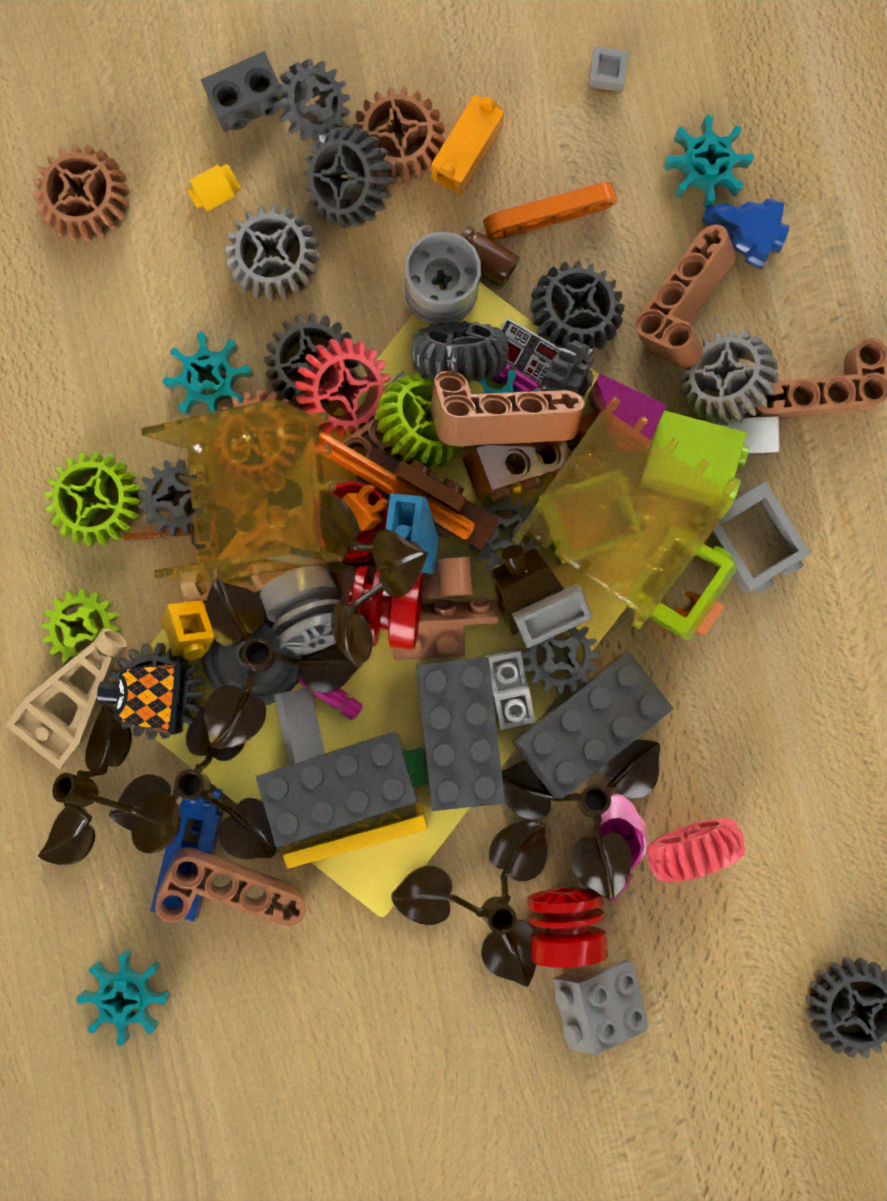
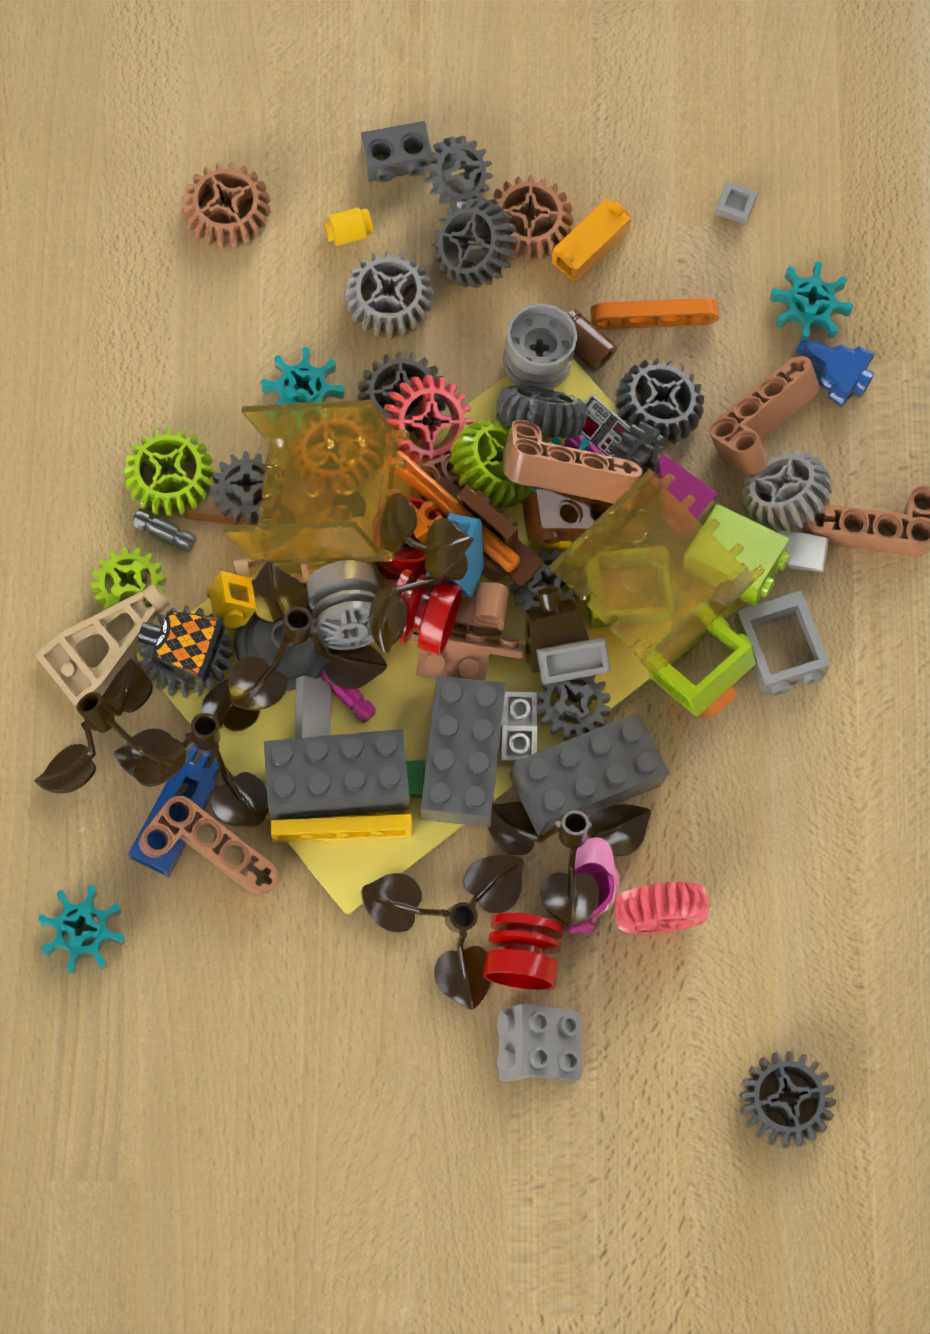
camera: 10 degrees right, 15 degrees down
(104, 560) = (164, 530): none -> dark grey axle

